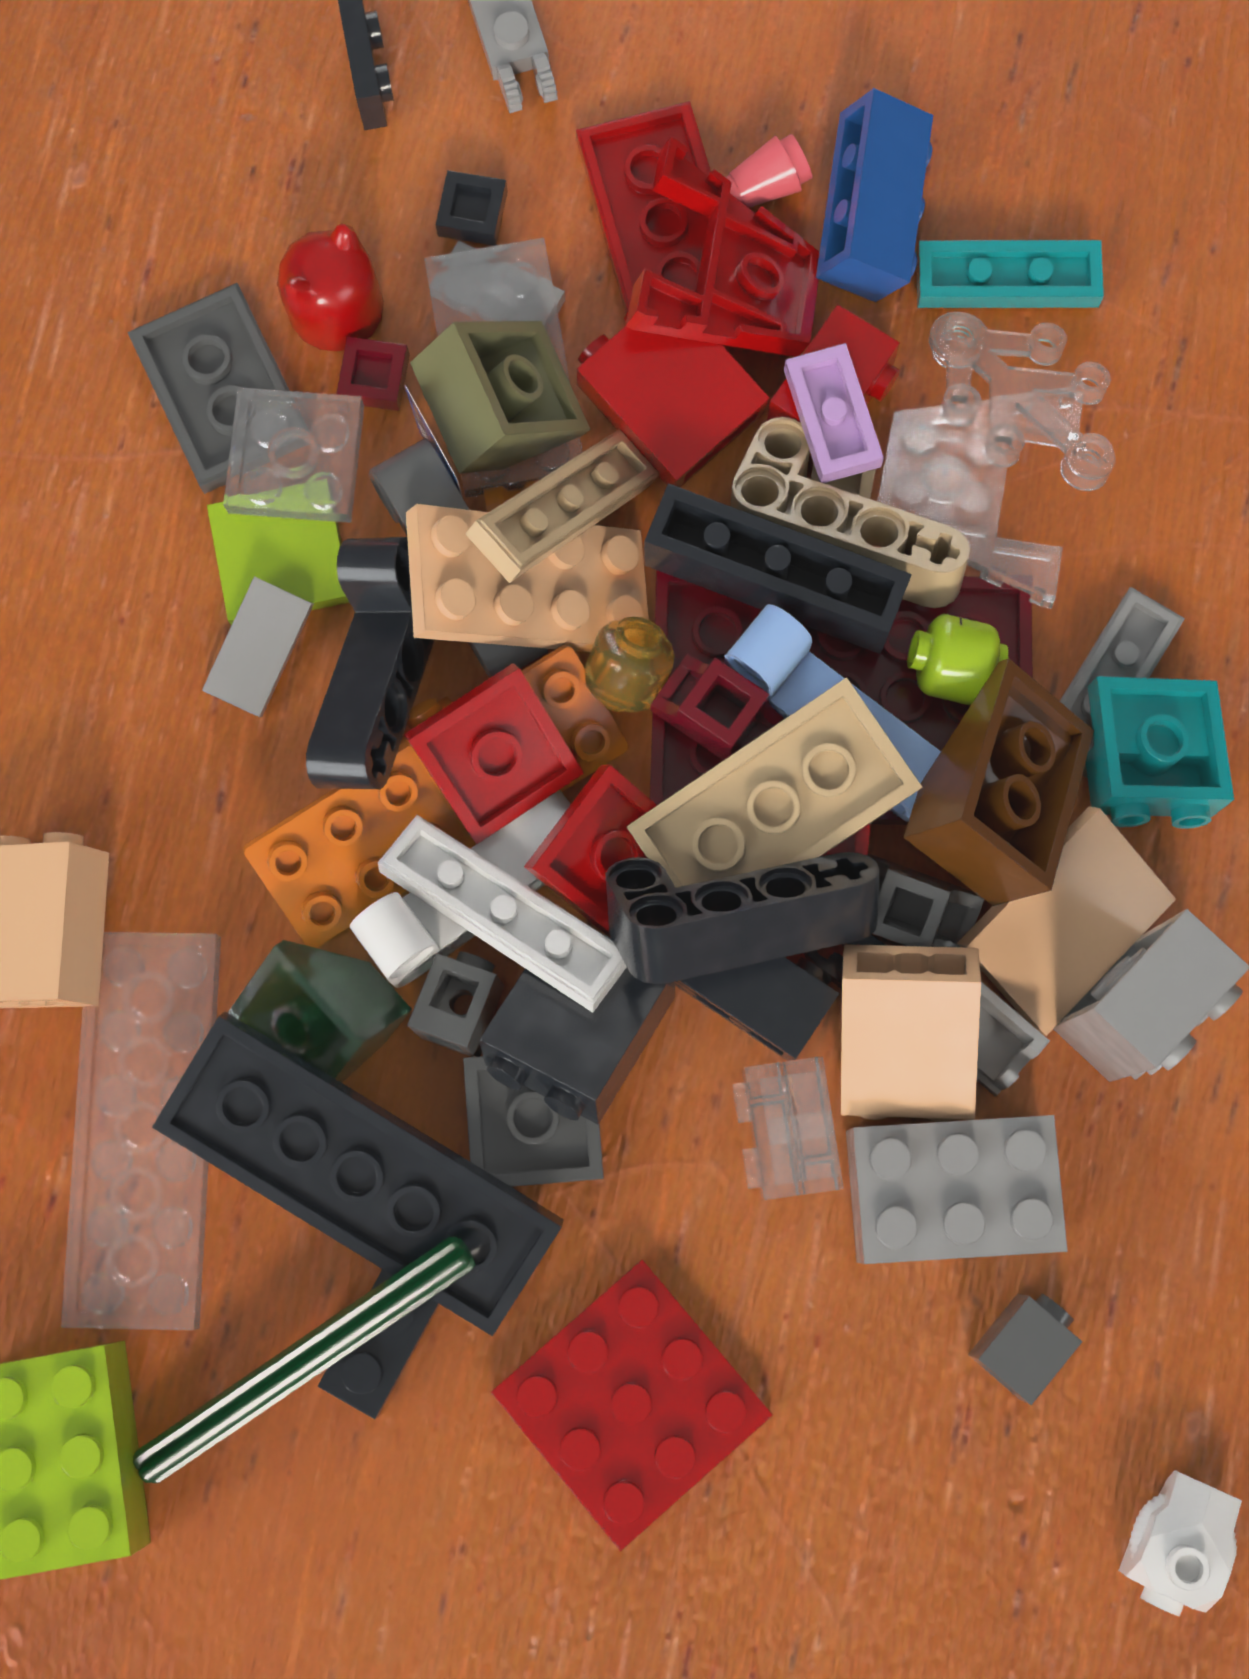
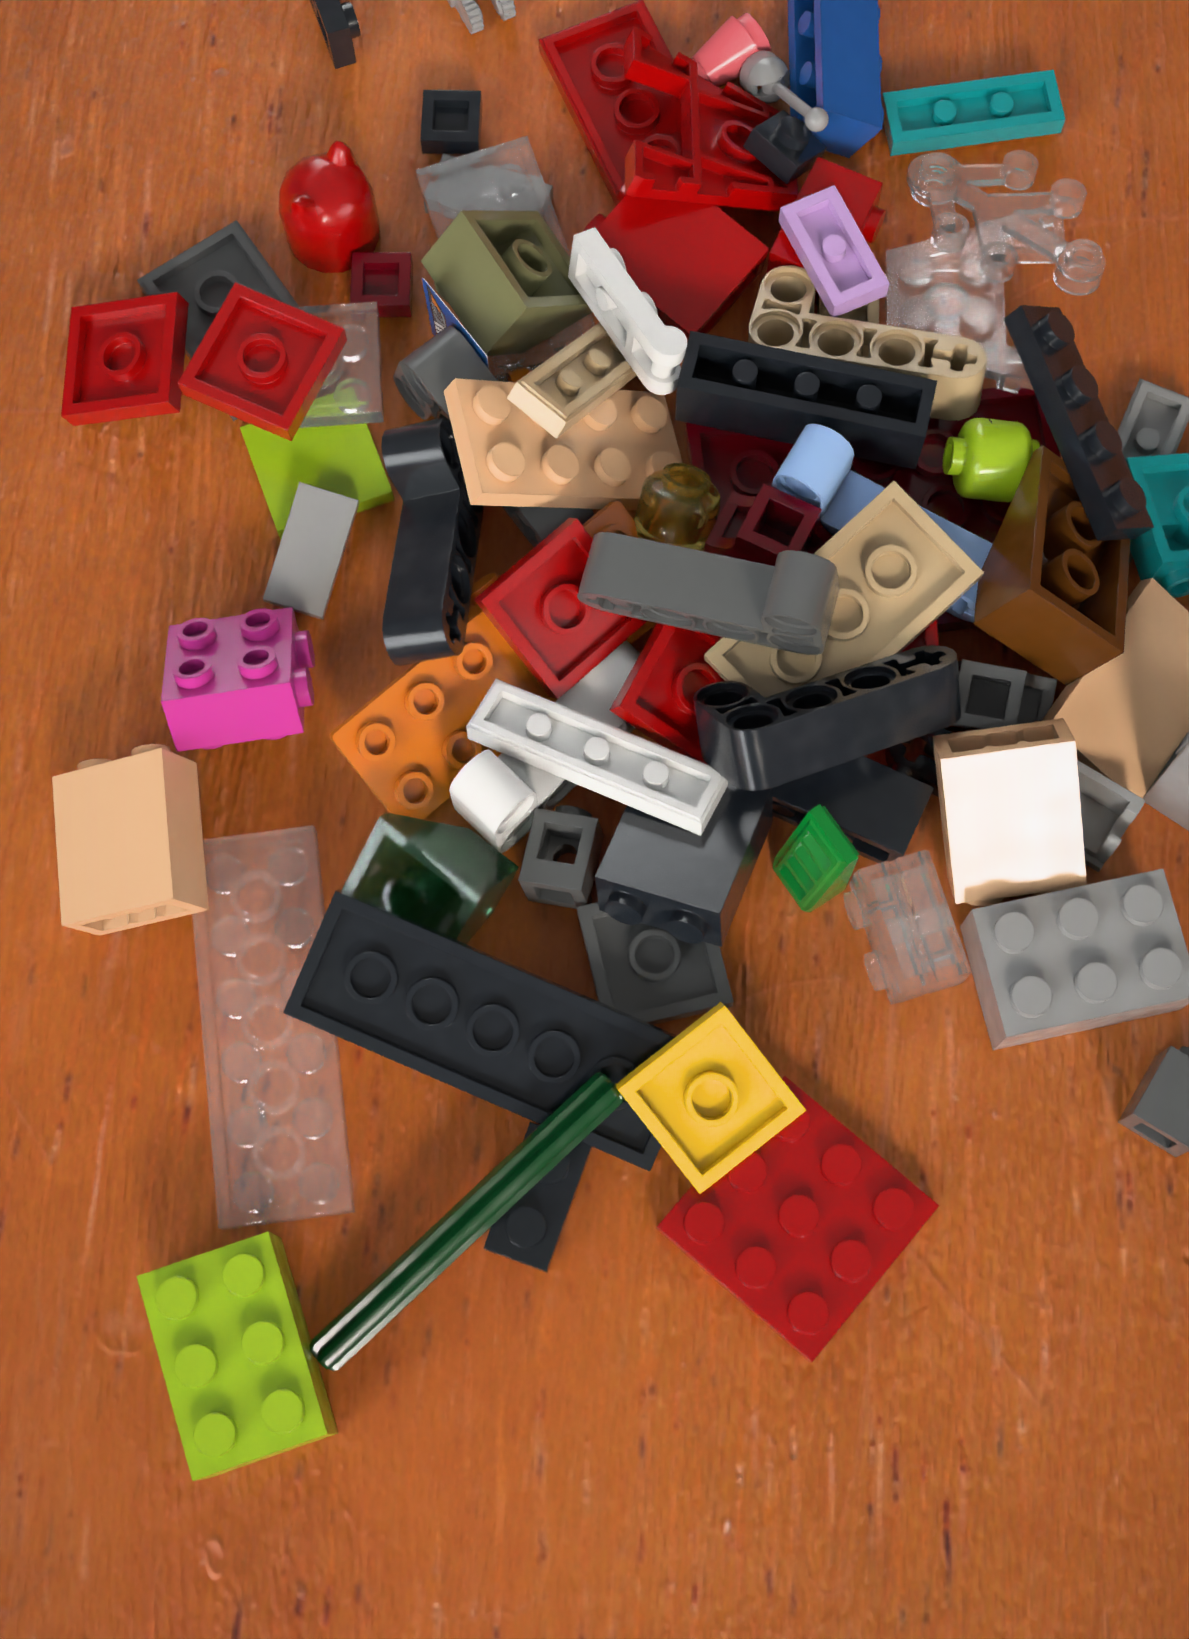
camera: 10 degrees left, 5 degrees down
(101, 417) = (125, 359): none -> red plate
(159, 775) = (237, 679): none -> dark pink brick
(233, 447) = (262, 361): none -> red plate
(559, 1279) = (710, 1097): none -> yellow plate
(608, 451) = (626, 313): none -> white plate
(690, 789) = (713, 593): none -> dark grey beam
(706, 1050) = (816, 860): none -> green slope
(803, 210) = (772, 75): none -> light grey hinge
(805, 288) = (784, 146): none -> black plate
(1051, 636) = (1079, 423): none -> black plate

